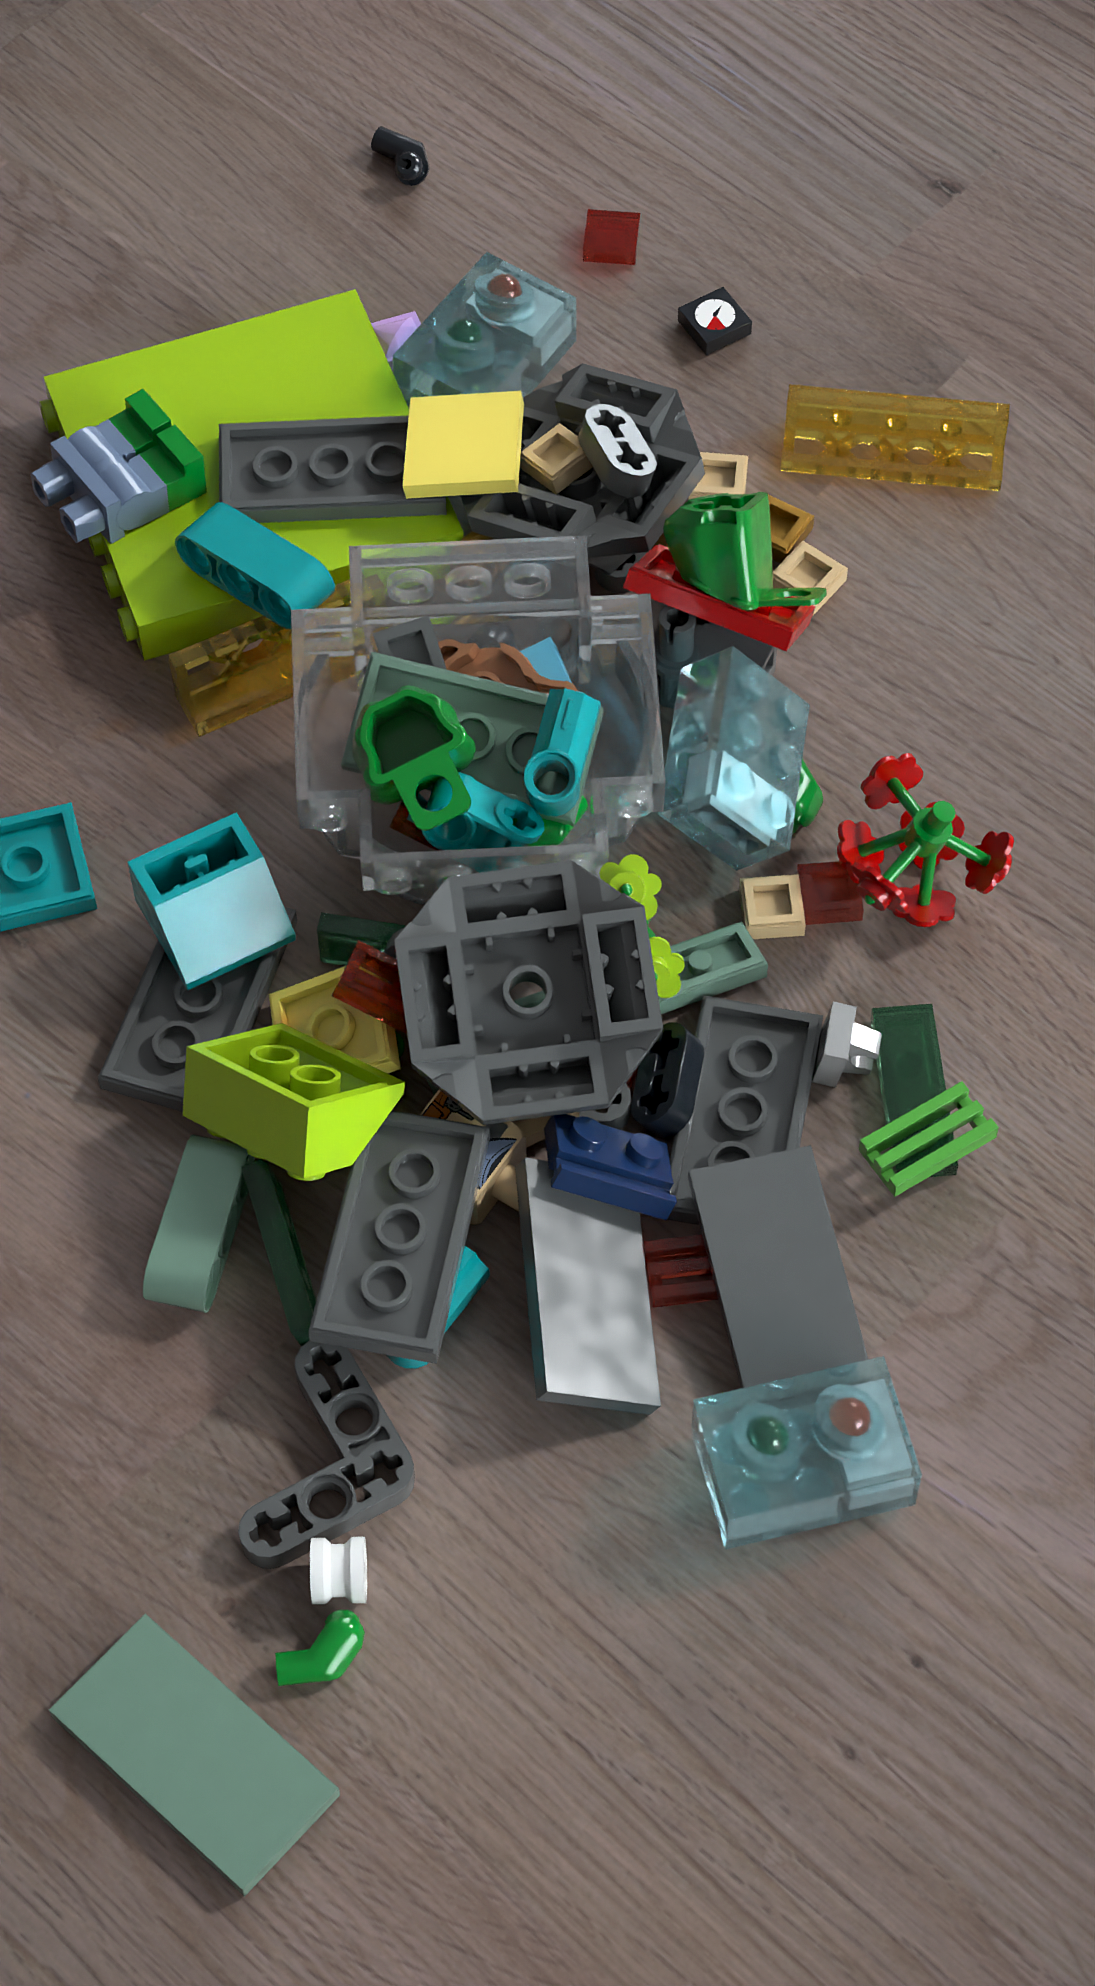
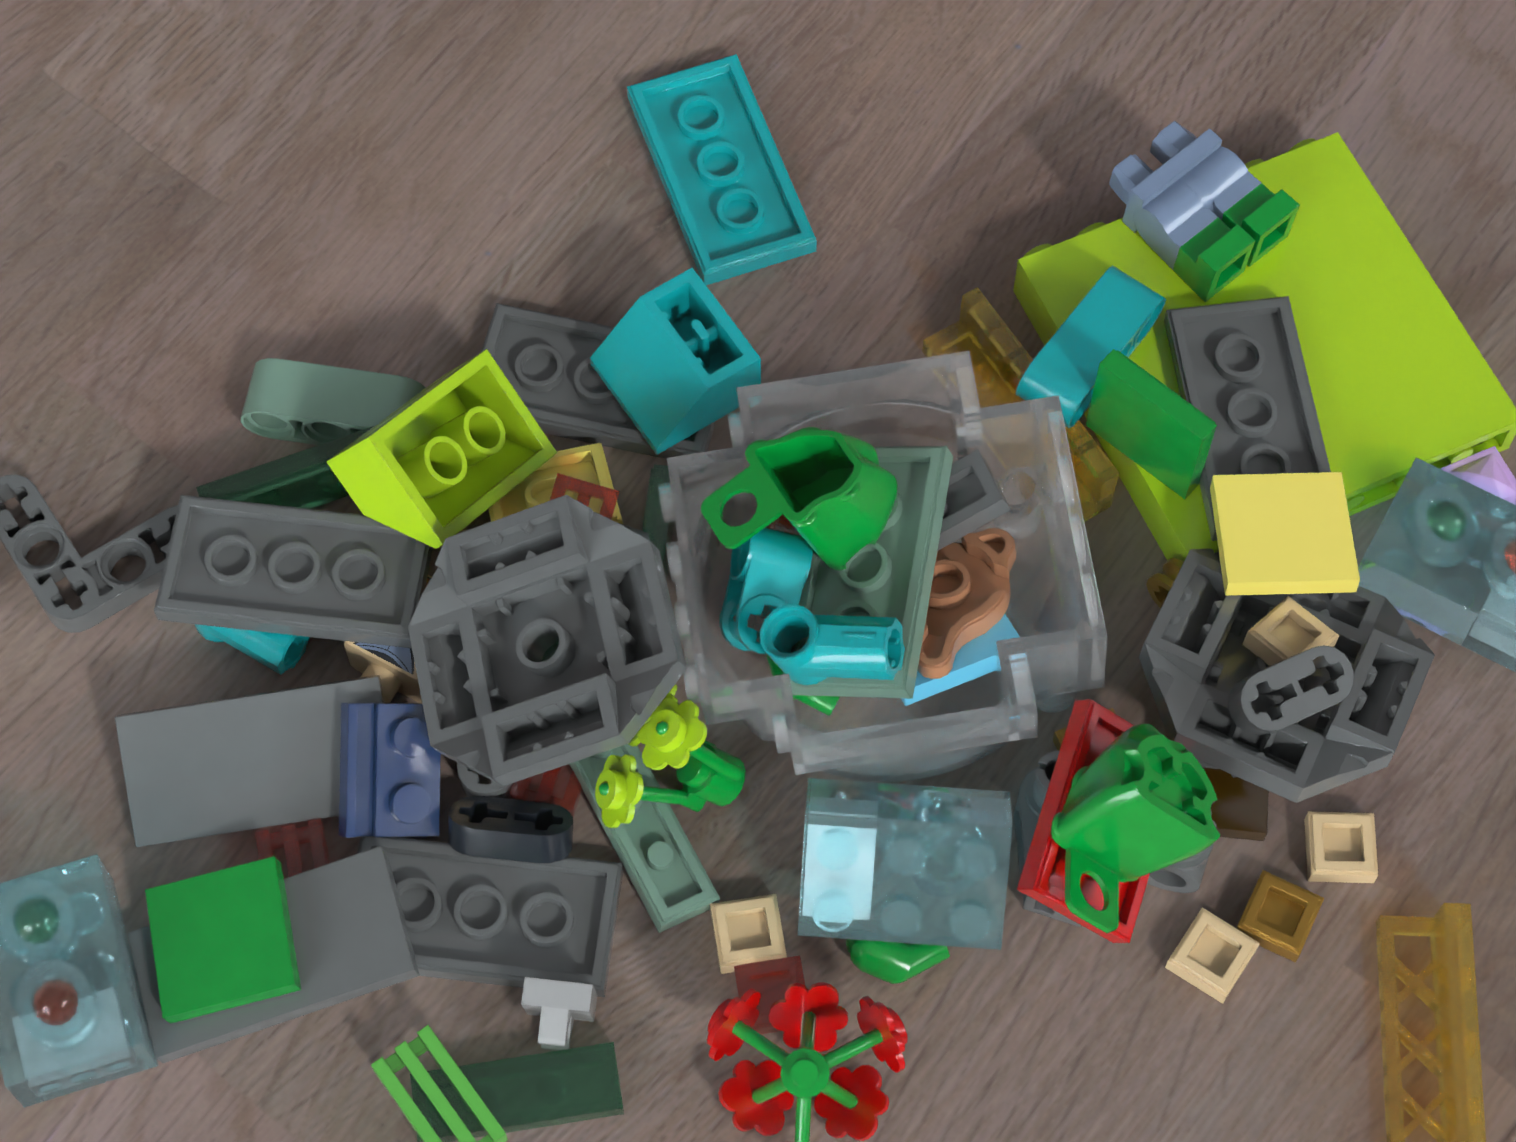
camera: 85 degrees right, 5 degrees up
(354, 511) = (1150, 423): none -> green tile
(771, 1310) = (222, 940): none -> green tile

